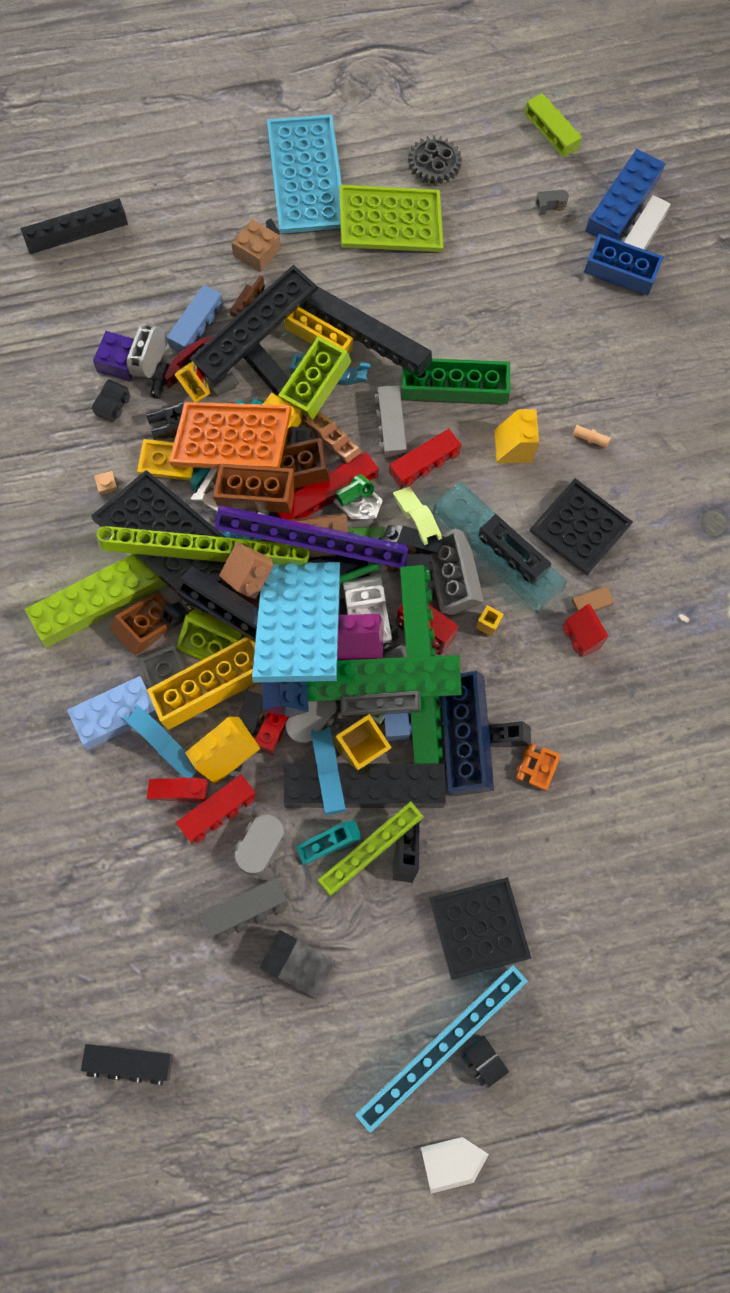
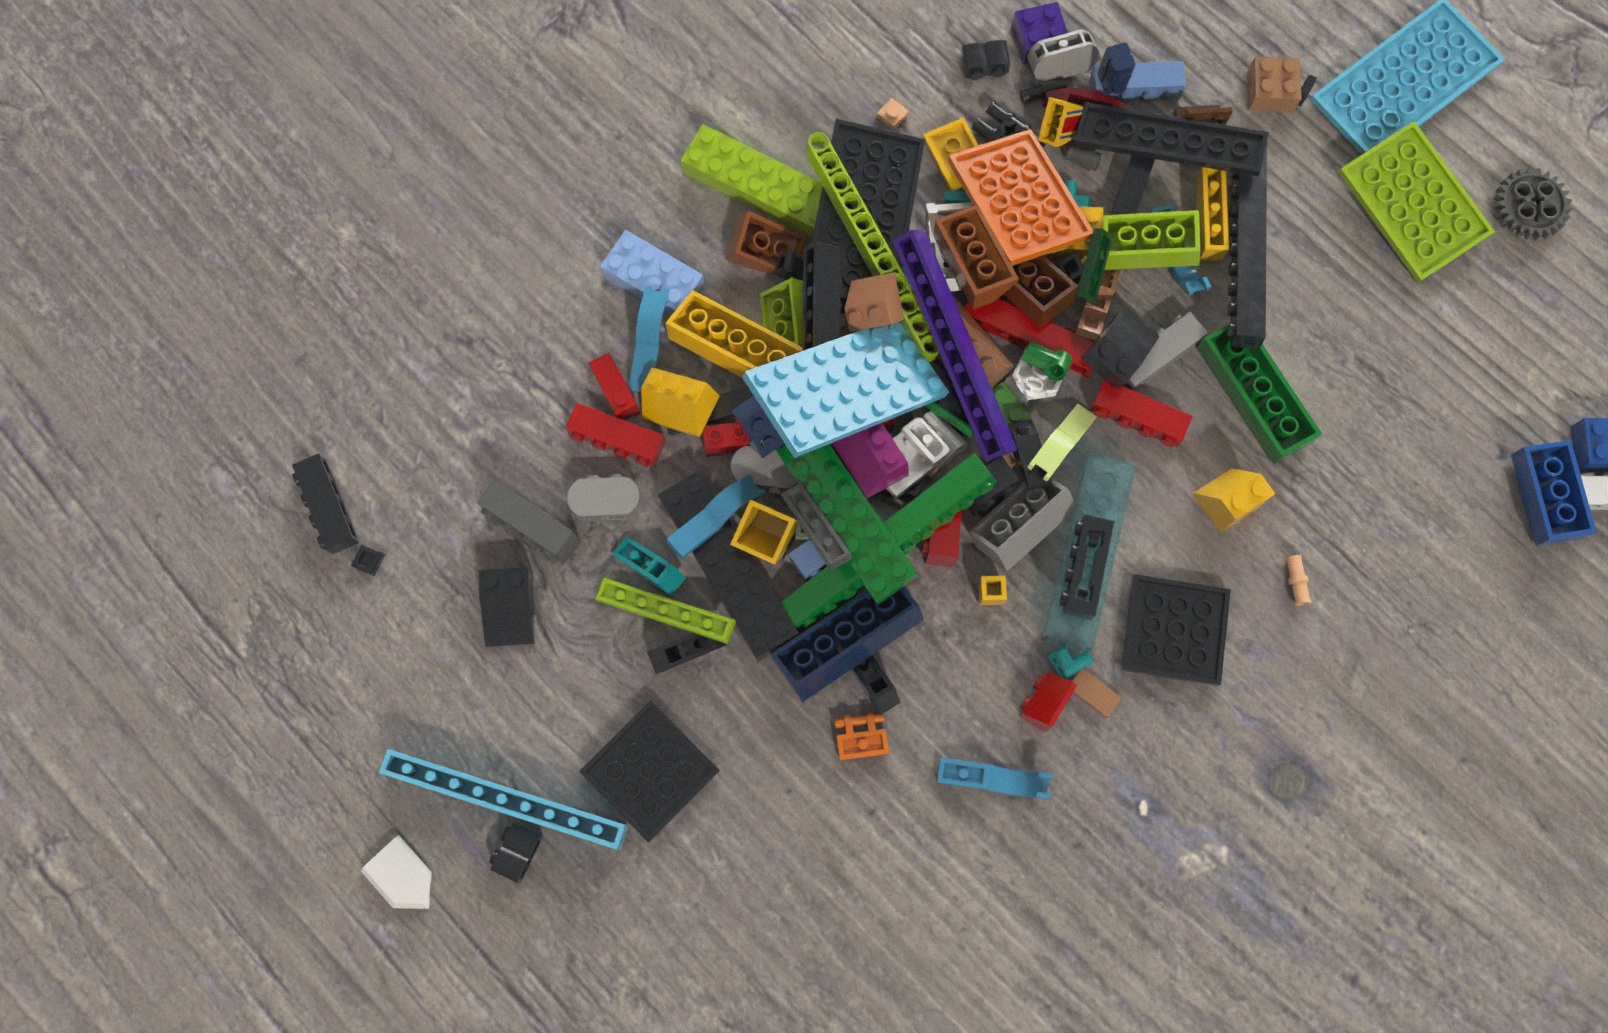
camera: 65 degrees right, 5 degrees up
(161, 665) = (731, 290): dark grey plate -> none
(184, 323) = (1116, 68): none -> dark blue brick
(192, 1054) = (367, 560): none -> black tile
(311, 421) = (1094, 265): none -> dark green plate
(378, 441) = (1120, 348): none -> black slope
(551, 200) = (1580, 364): dark grey leg -> none
(566, 604) = (1068, 663): none -> teal piece
(615, 697) = (994, 778): none -> dark azure piece

